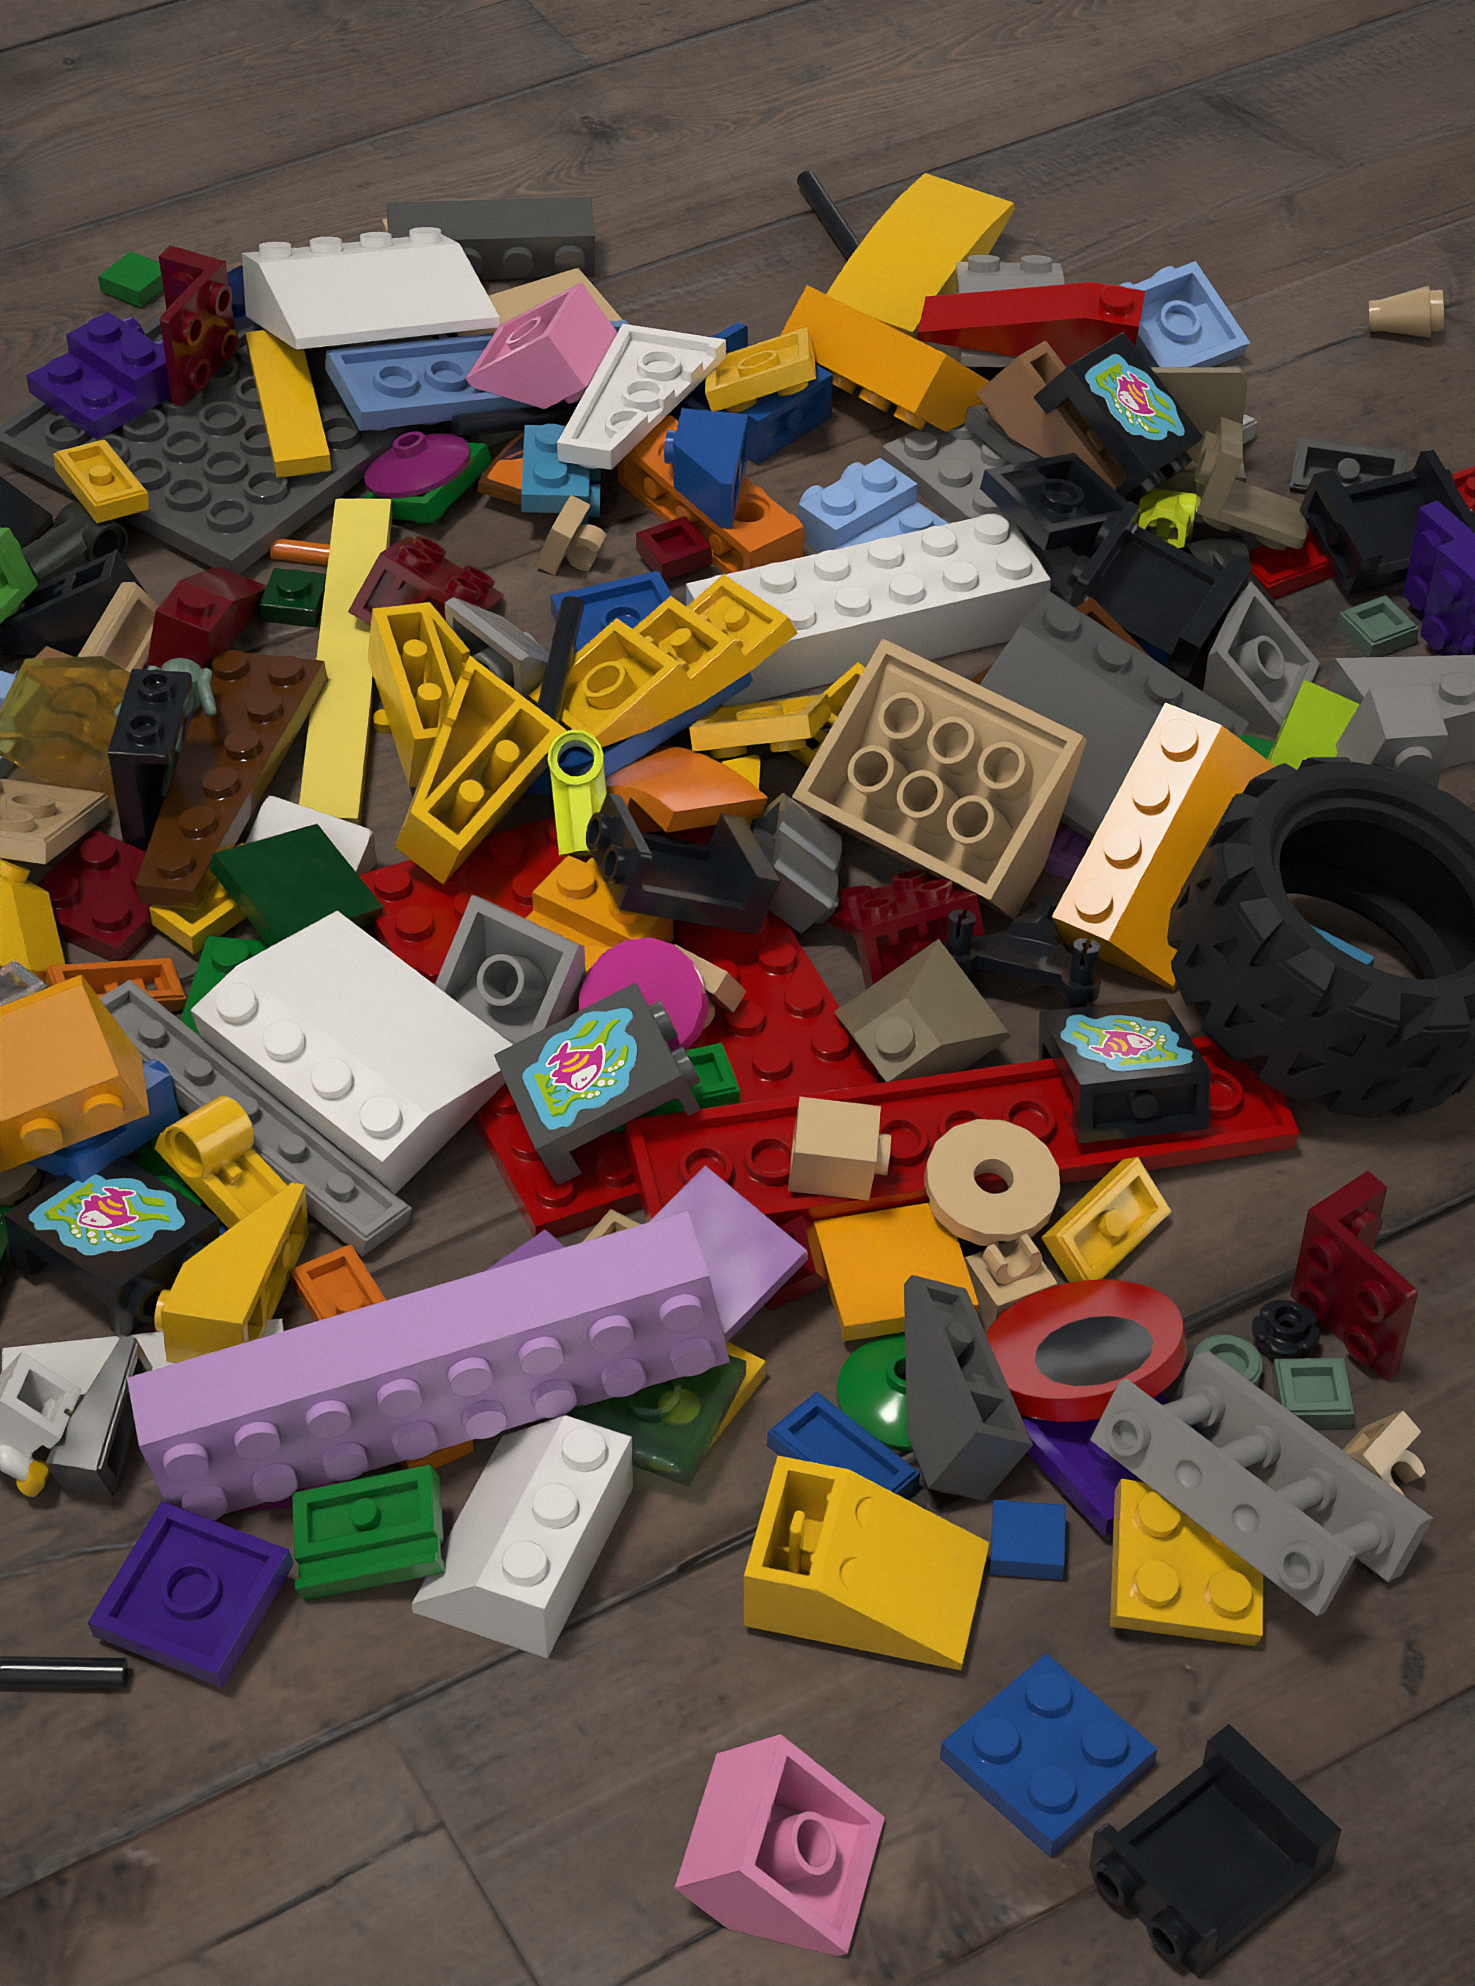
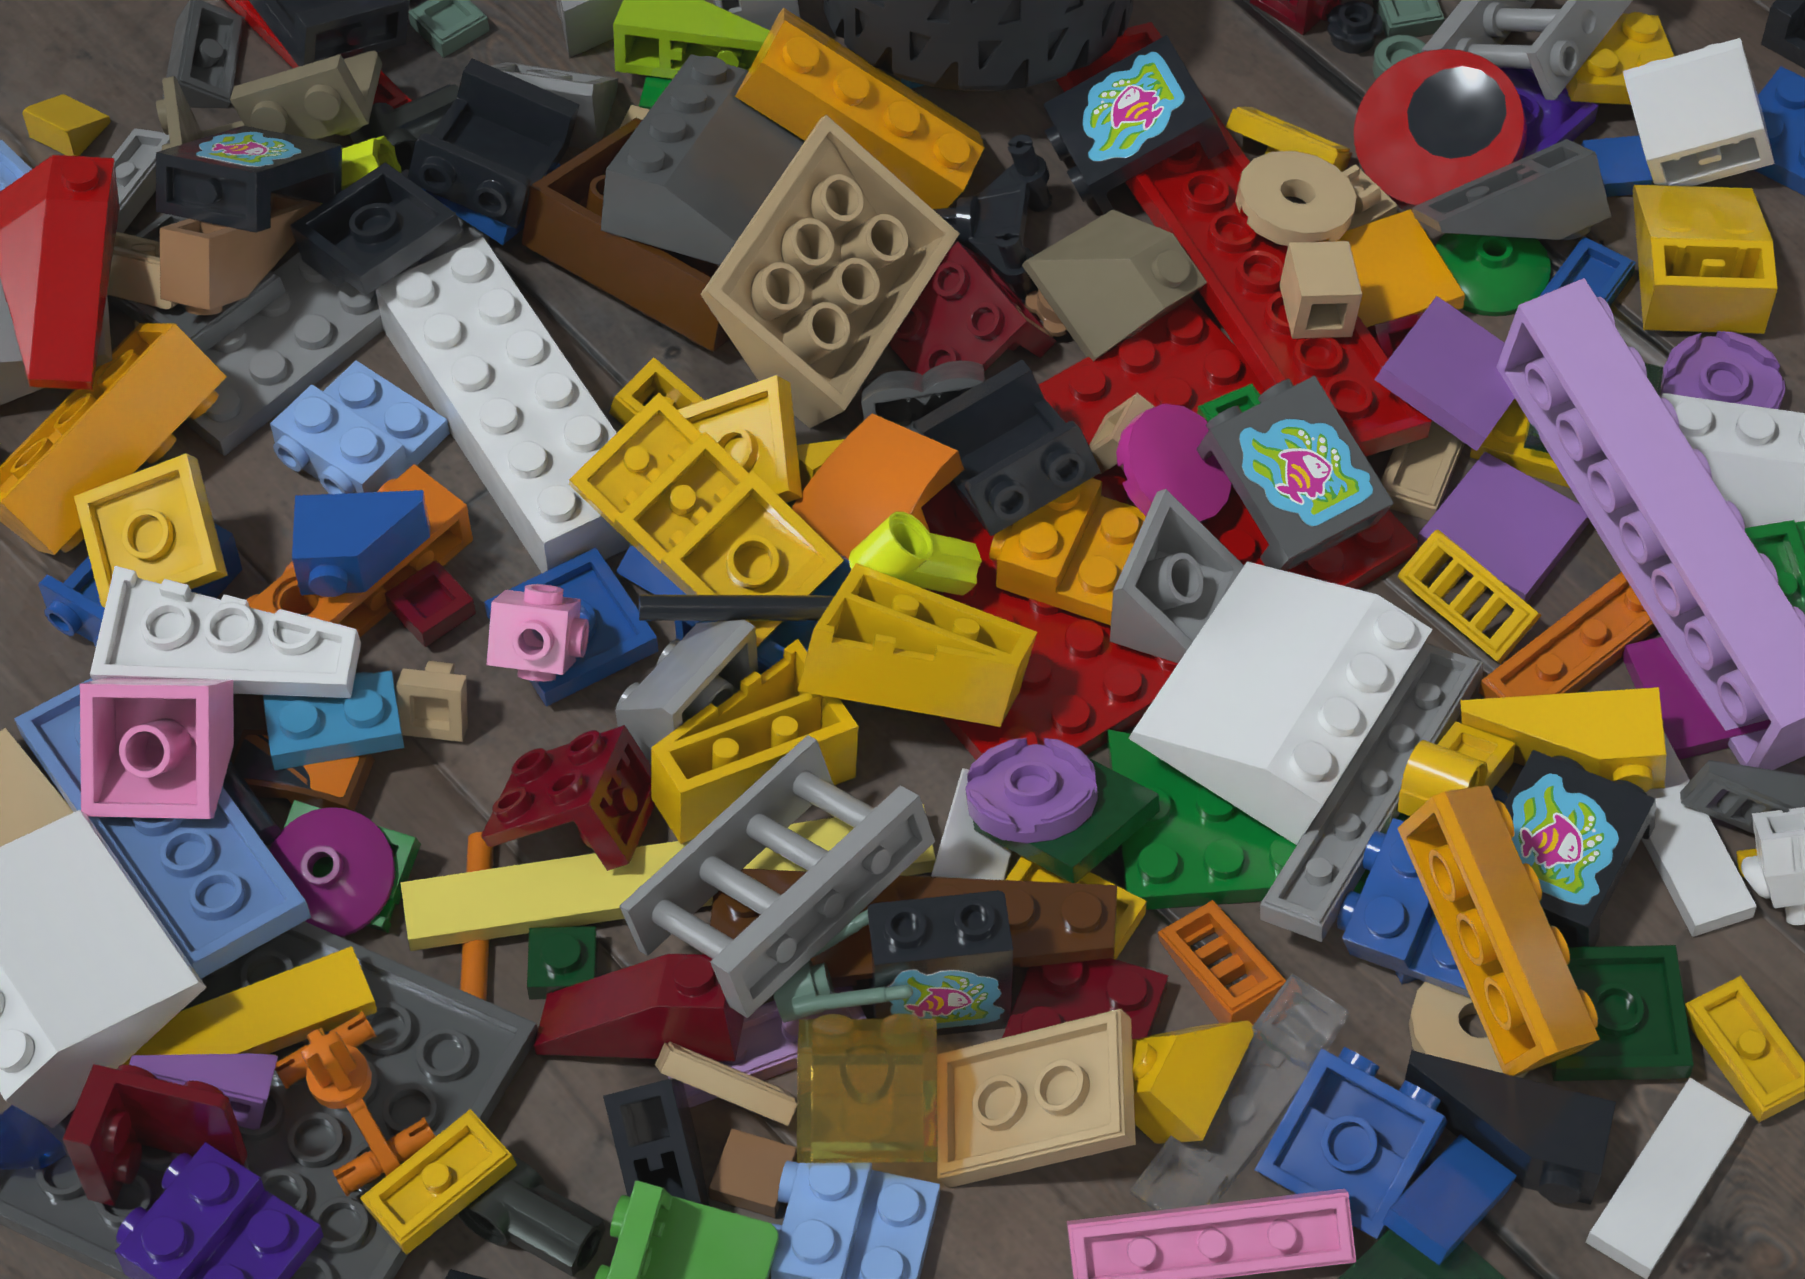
camera: 100 degrees left, 10 degrees up
(188, 423) = (339, 1080): none -> orange axle
(224, 366) = (240, 1077): none -> medium lavender slope
(254, 691) = (812, 909): none -> light grey fence
(318, 856) = (1031, 790): none -> medium lavender tile
(460, 1242) = (1426, 564): none -> yellow slope
(588, 562) = (536, 632): none -> bright pink brick
(678, 1565) = (1724, 370): none -> medium lavender tile
(1041, 1586) = (1699, 115): none -> white slope
(1274, 384) = (64, 124): none -> yellow slope

